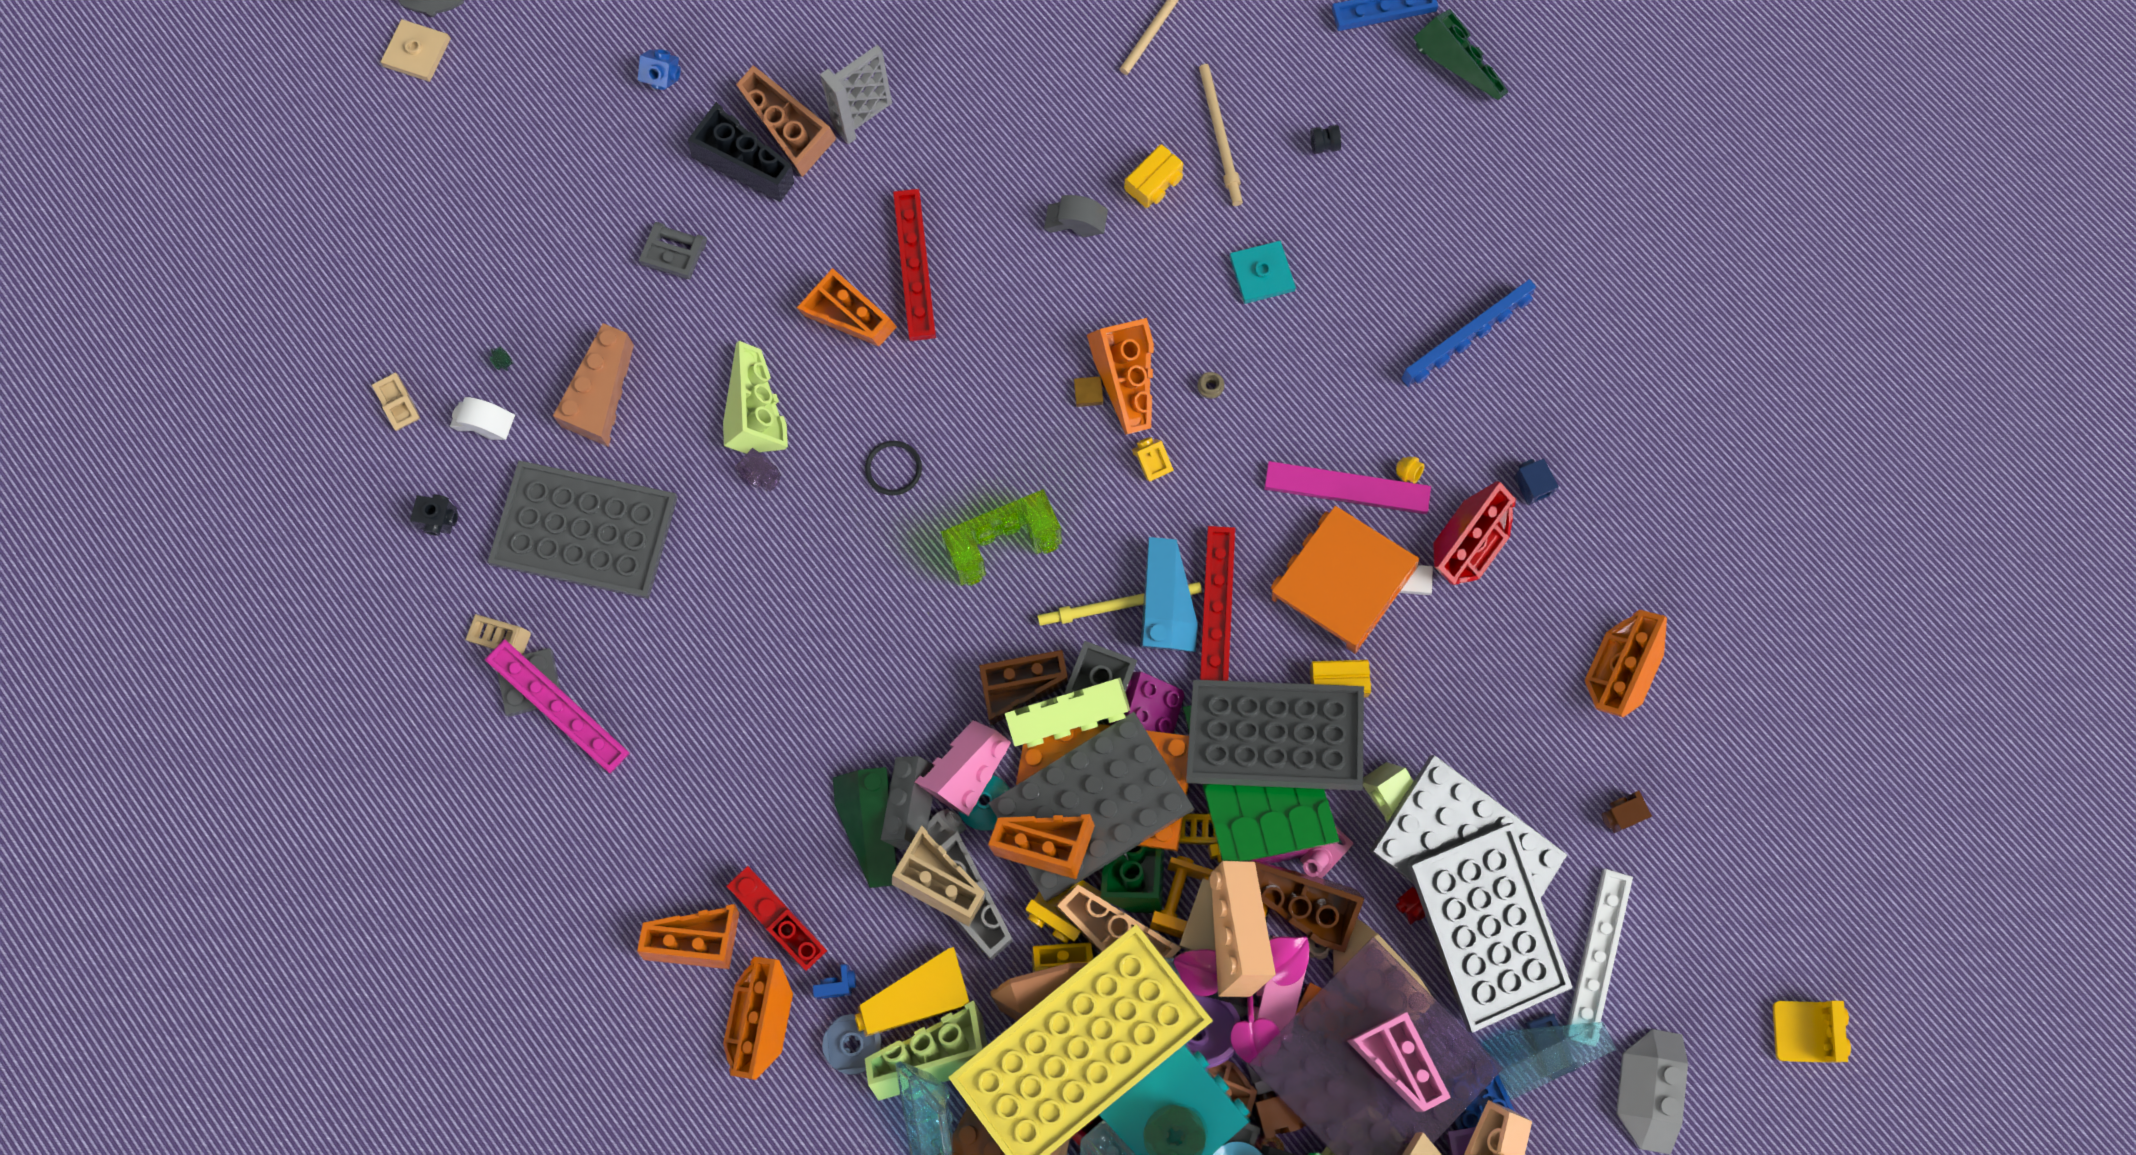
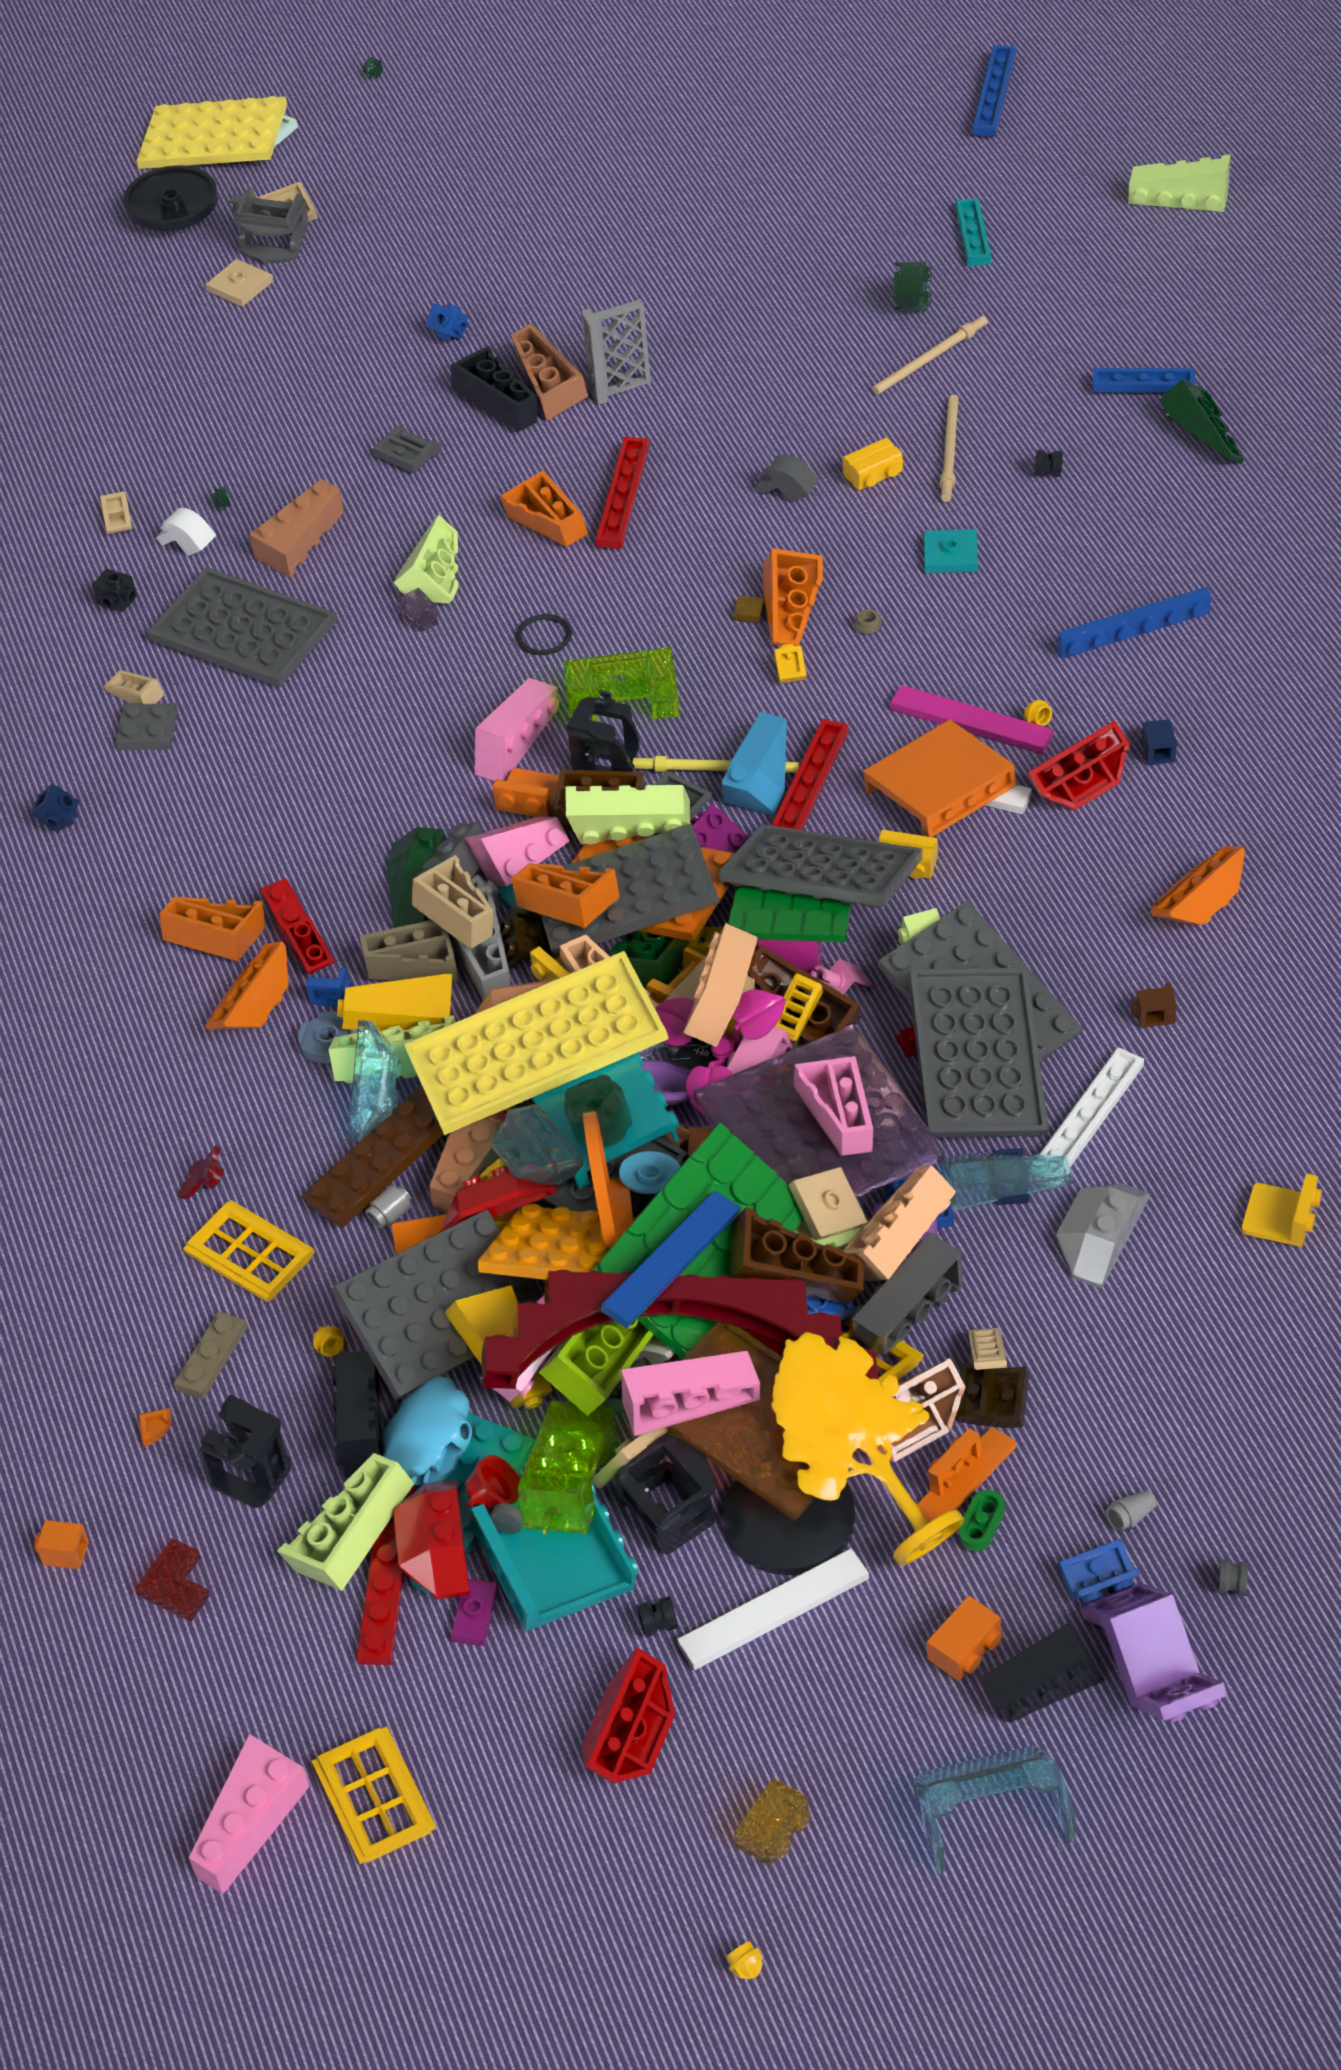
camera: 20 degrees right, 25 degrees down
(475, 823) = (55, 808): none -> dark blue brick
(557, 706) = (165, 741): dark pink tile -> none
(901, 927) = (409, 952): none -> dark tan wedge
(909, 607) = (513, 728): none -> bright pink wedge
(948, 683) = (526, 793): none -> orange bracket
(1002, 618) = (597, 740): none -> black animal
(1004, 877) = (521, 934): none -> dark brown bracket
(1307, 898) = (811, 1001): none -> yellow slope

